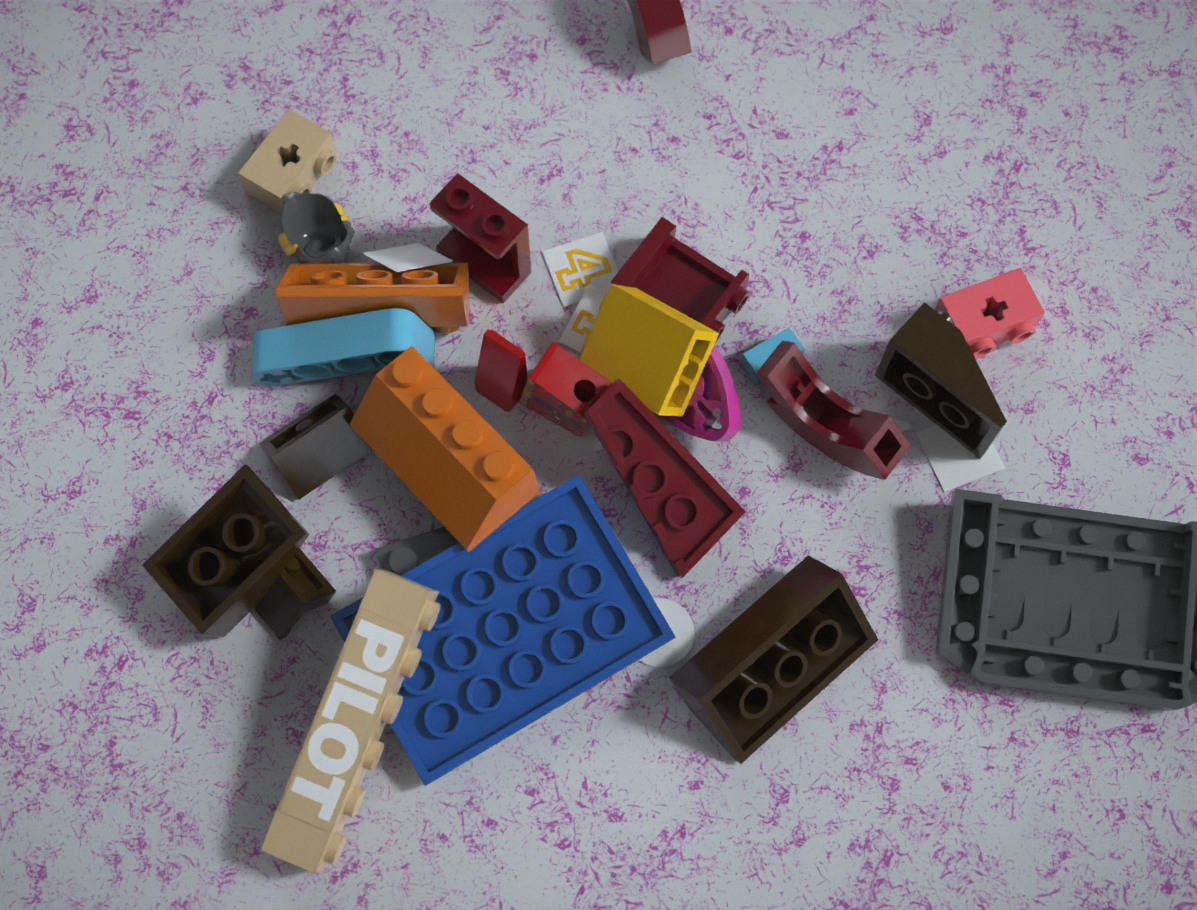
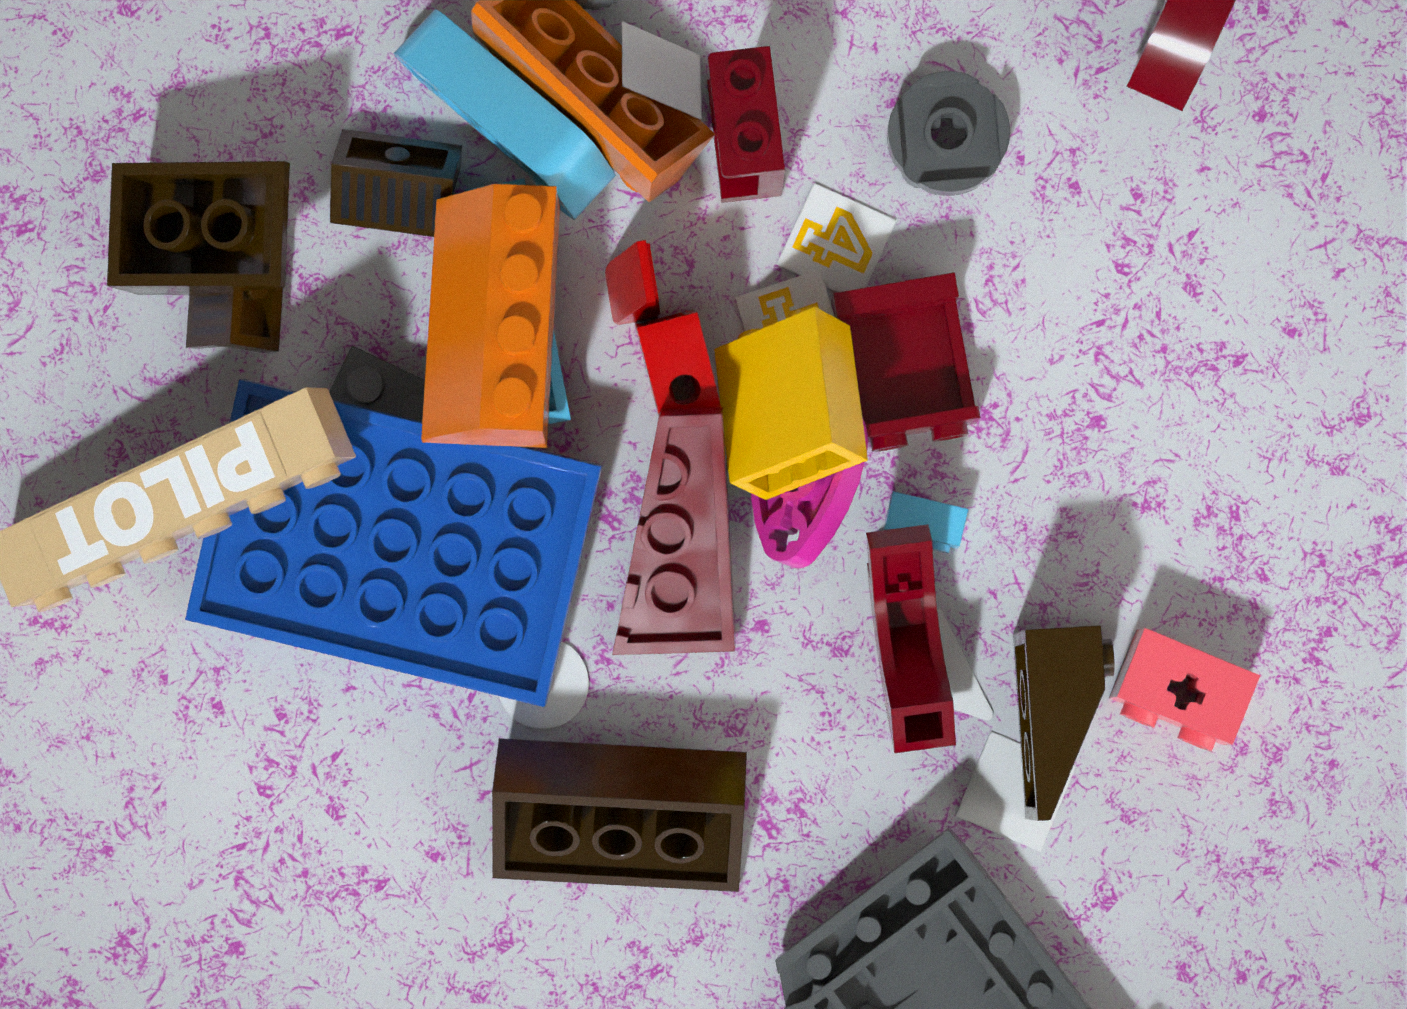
camera: 45 degrees right, 15 degrees up
(581, 187) = (971, 108): none -> dark grey plate

